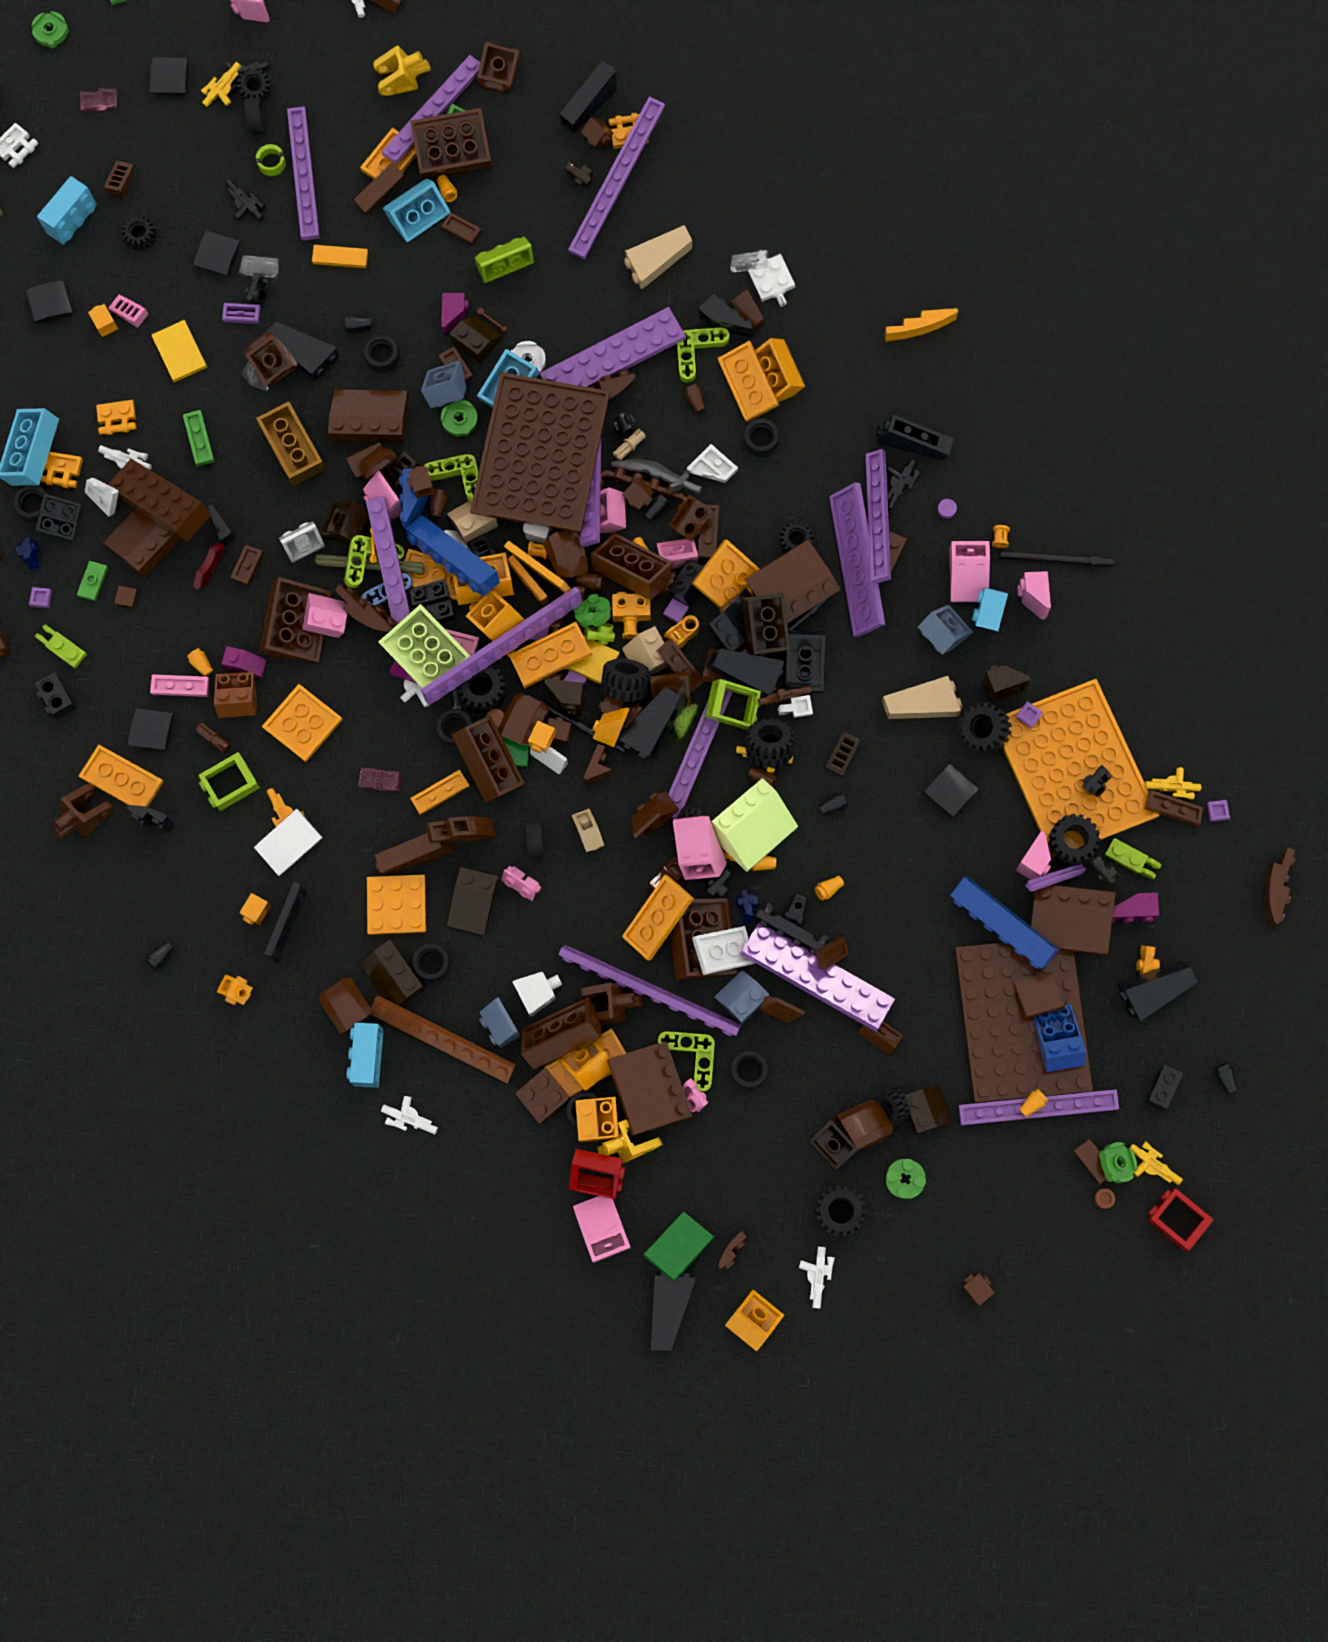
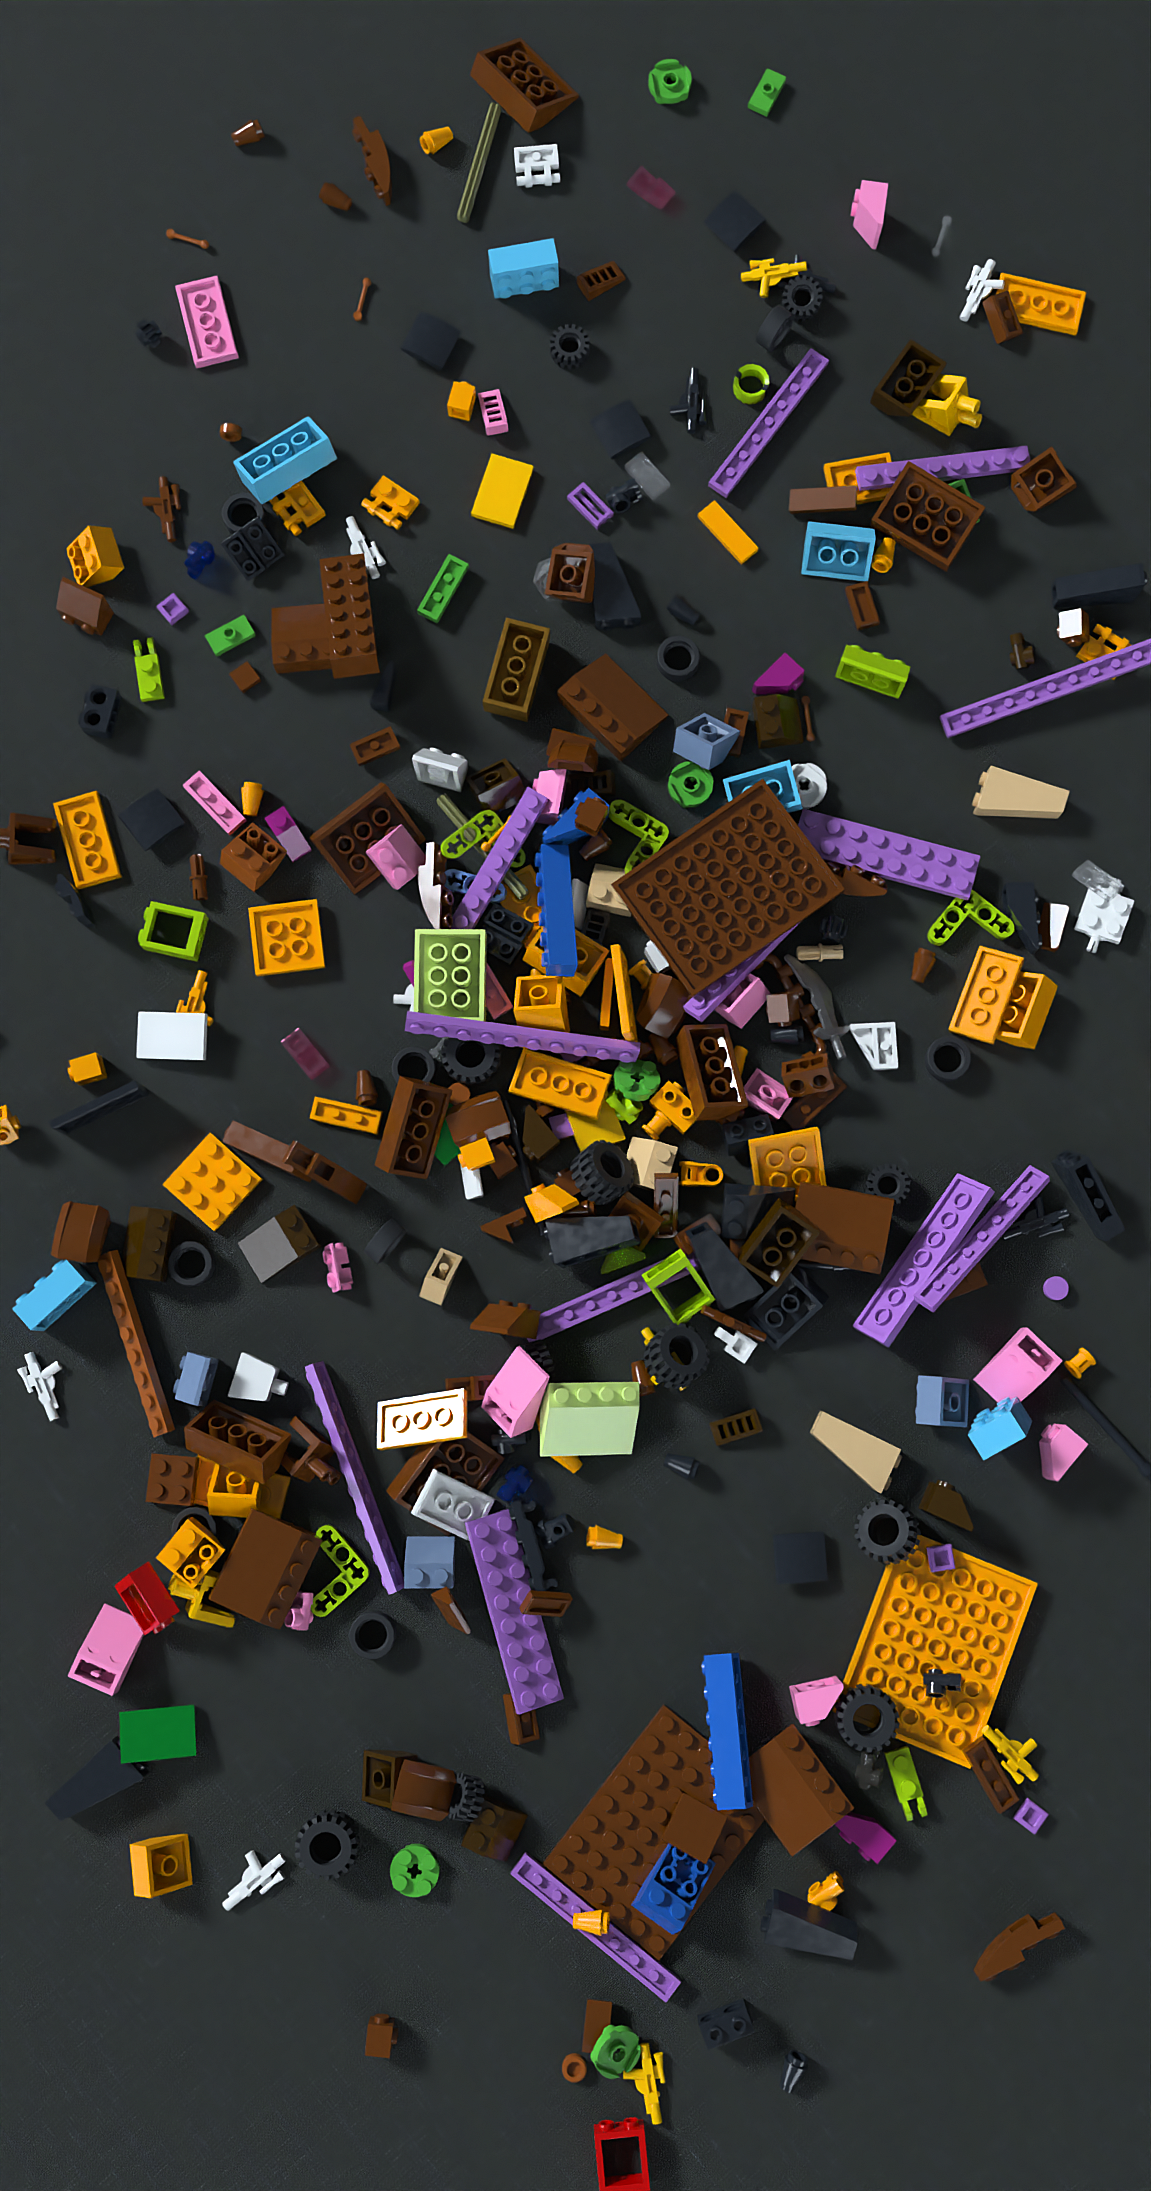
camera: 40 degrees right, 5 degrees up
(102, 495) = (309, 564): white wing -> none
(212, 560) = (328, 720): dark red tile -> none
(364, 77) = (907, 380): none -> dark brown slope
(438, 766) = (365, 1089): none -> reddish brown cone
(675, 611) = (713, 1148): medium lavender tile -> none
(727, 1258) = (193, 1784): reddish brown slope -> none
(1055, 877) = (813, 1734): medium lavender axle -> none

